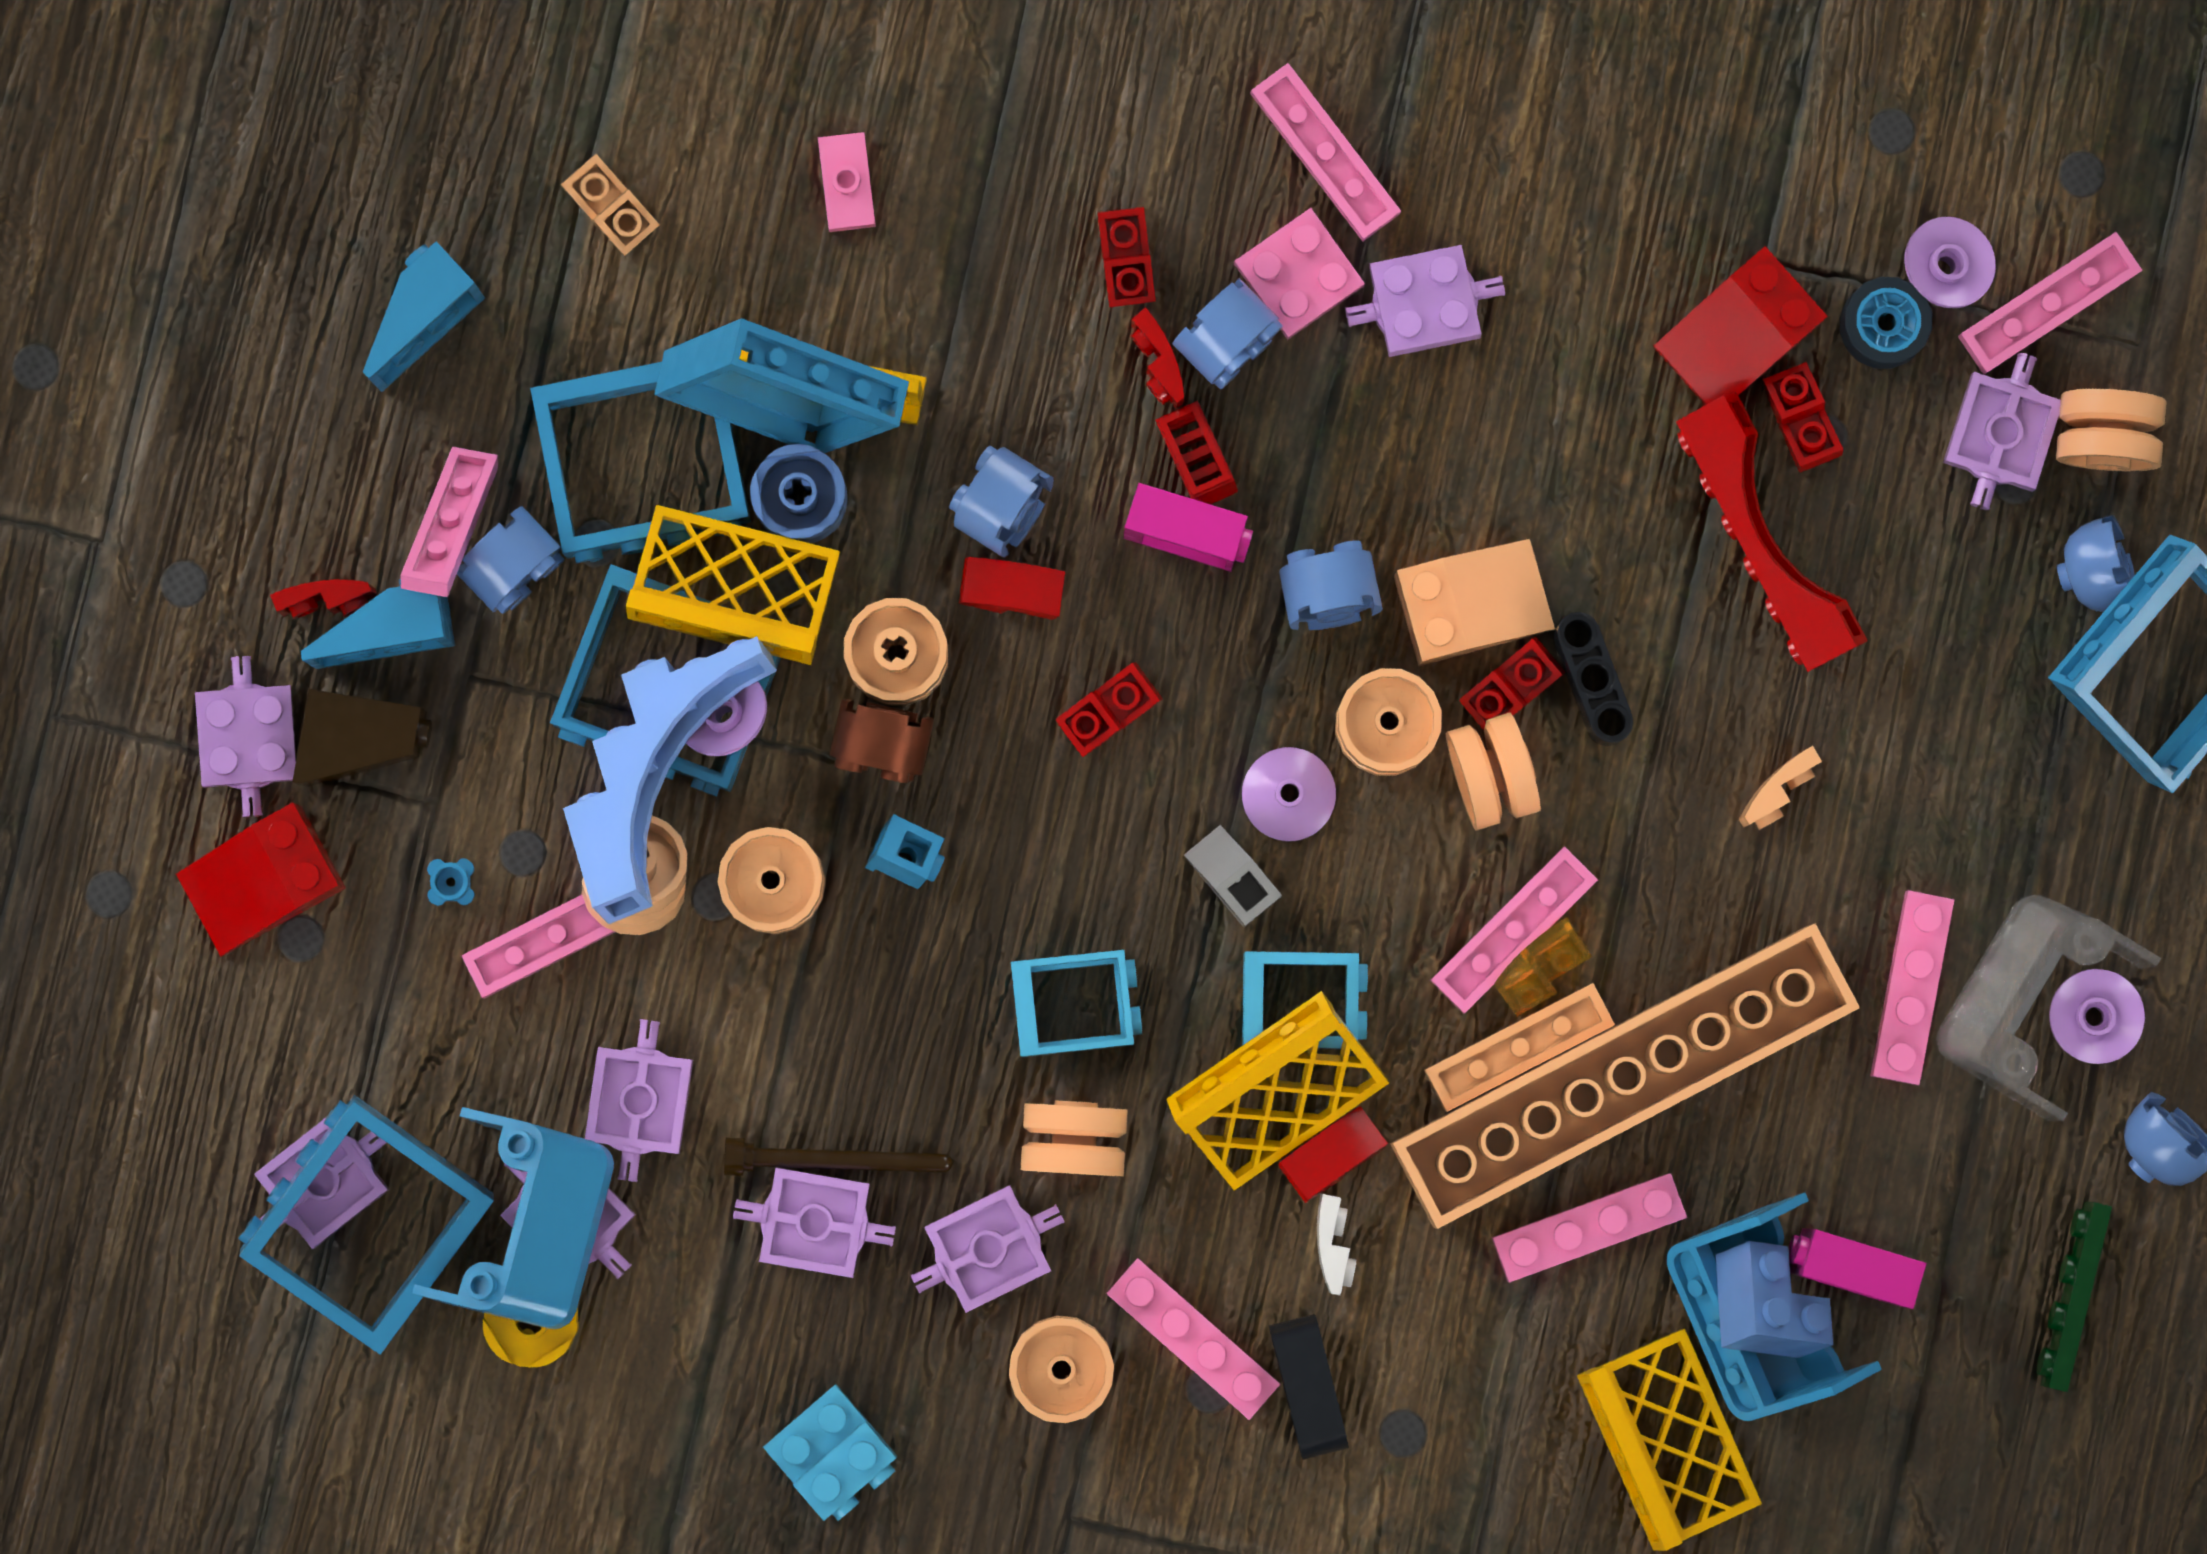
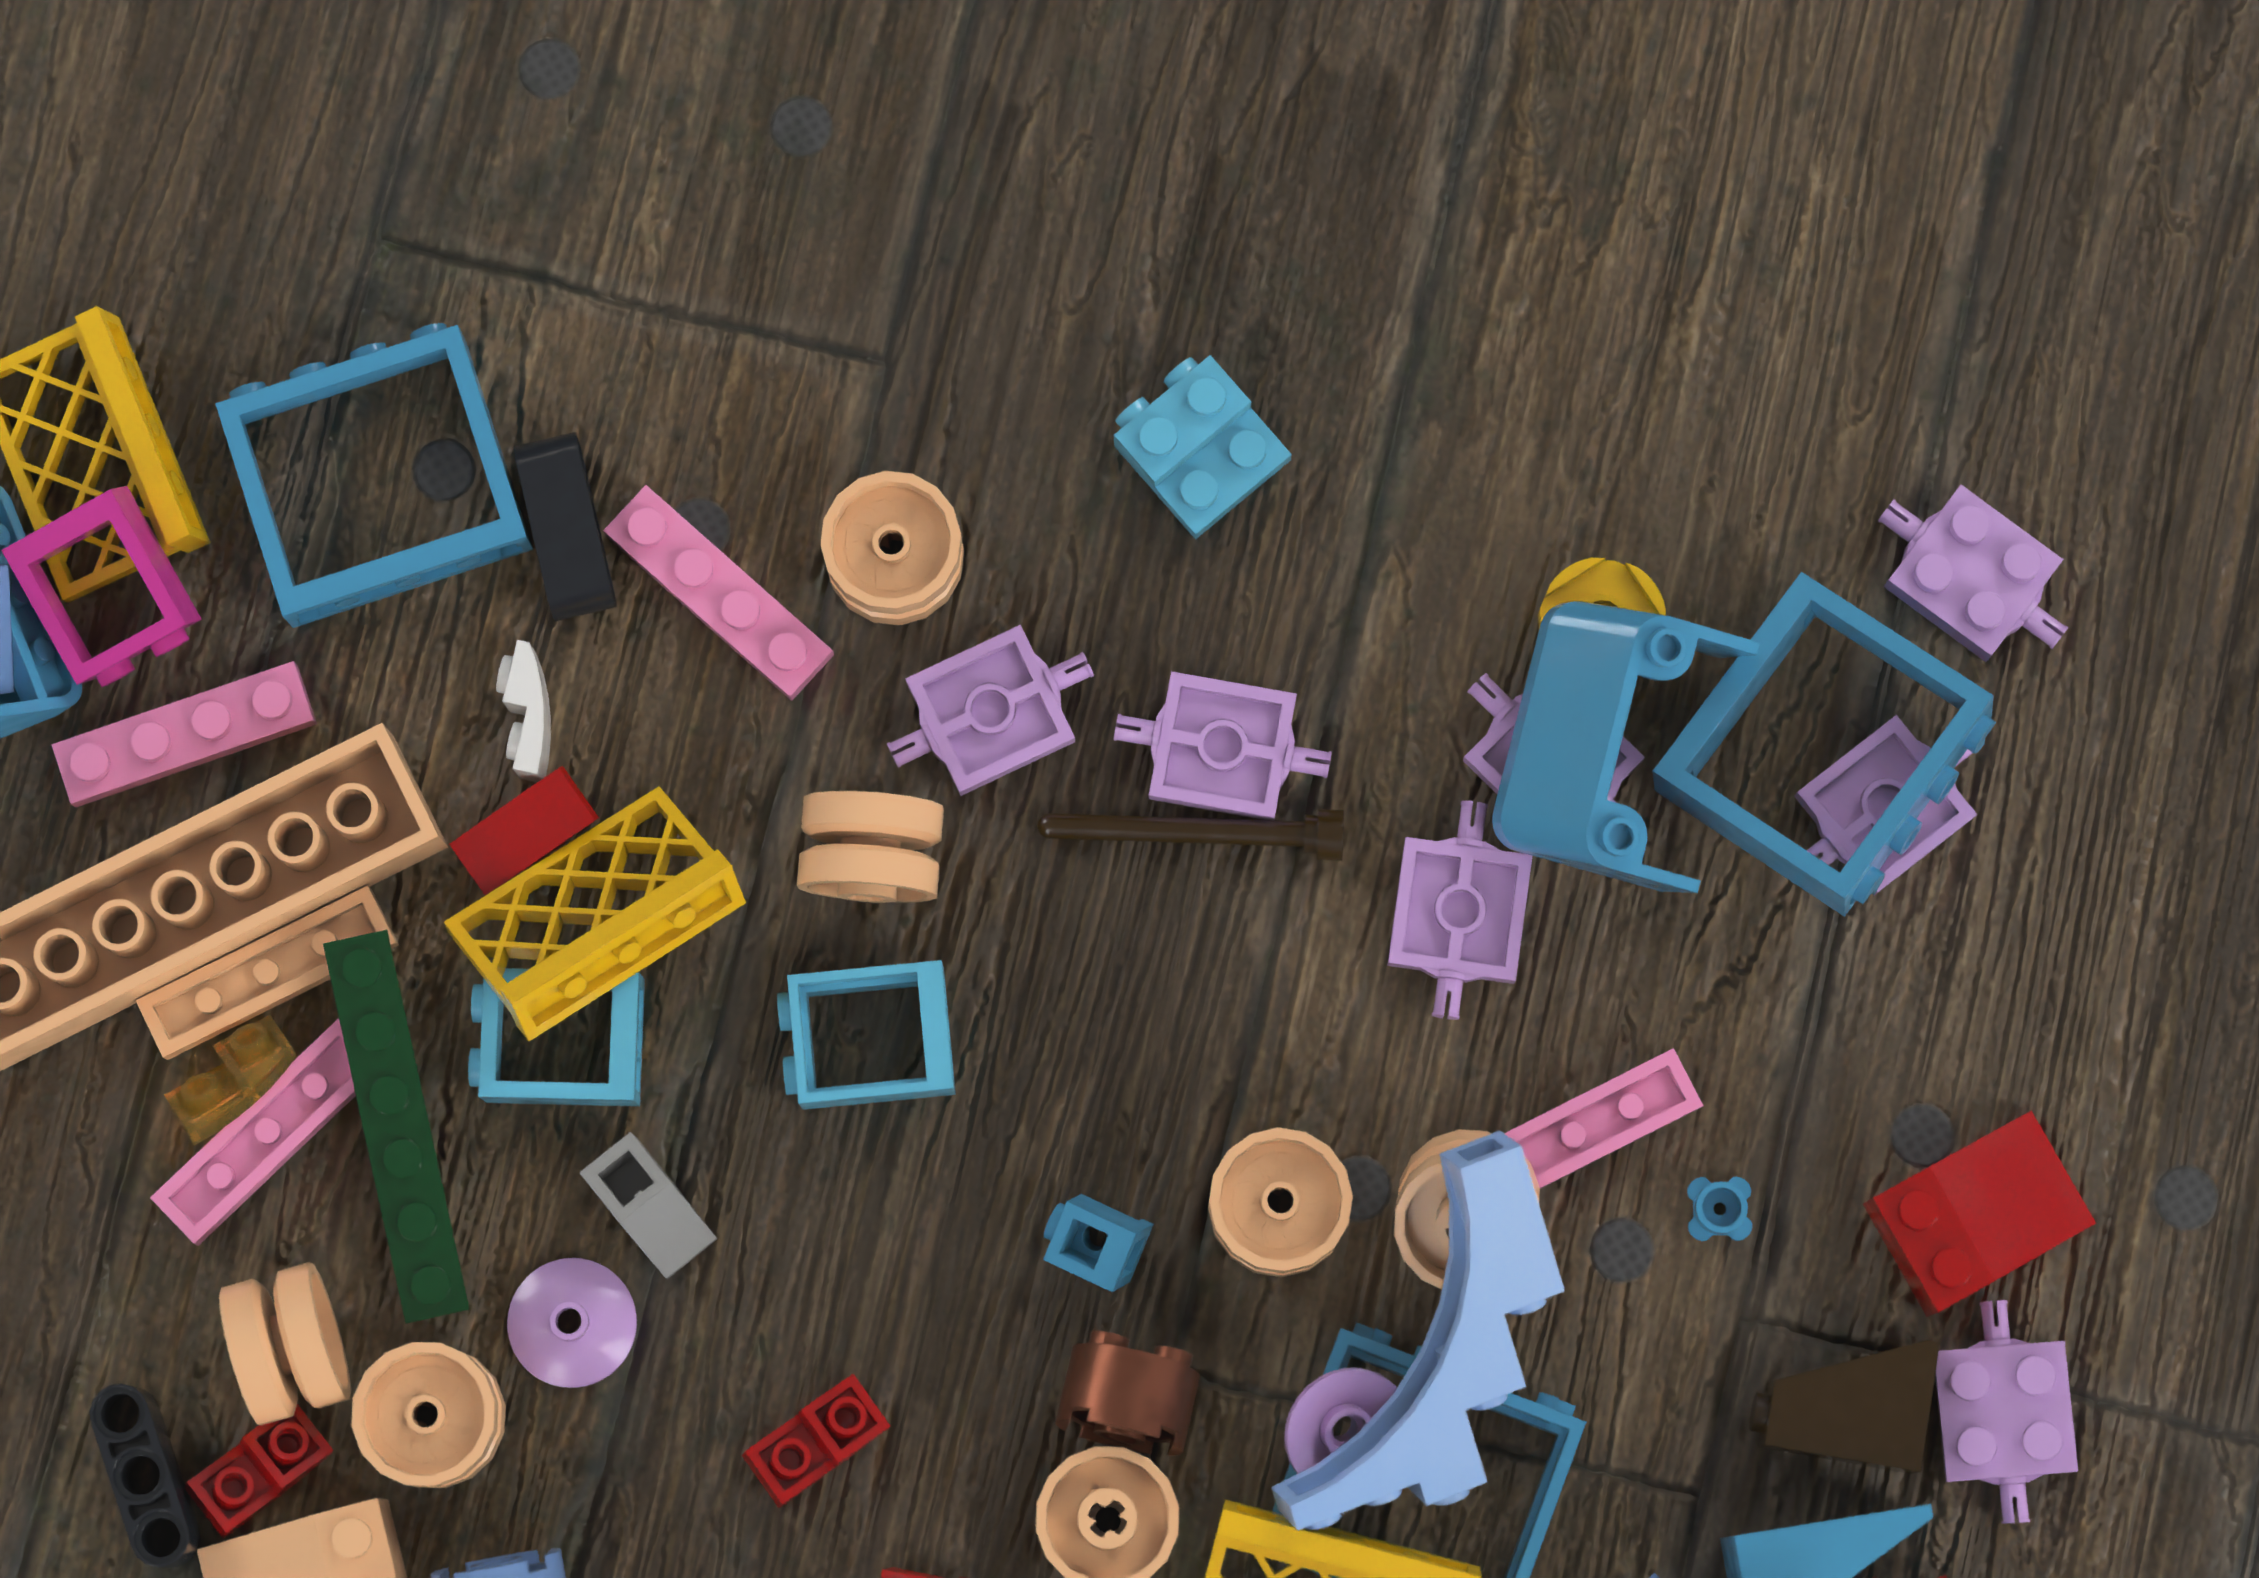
camera: 175 degrees left, 5 degrees down
(251, 1359) = (1973, 573): none -> lavender plate
(1419, 933) = (396, 1126): none -> dark green plate
(1461, 1509) = (403, 569): none -> dark azure window
(1638, 1389) = (122, 511): none -> dark pink window

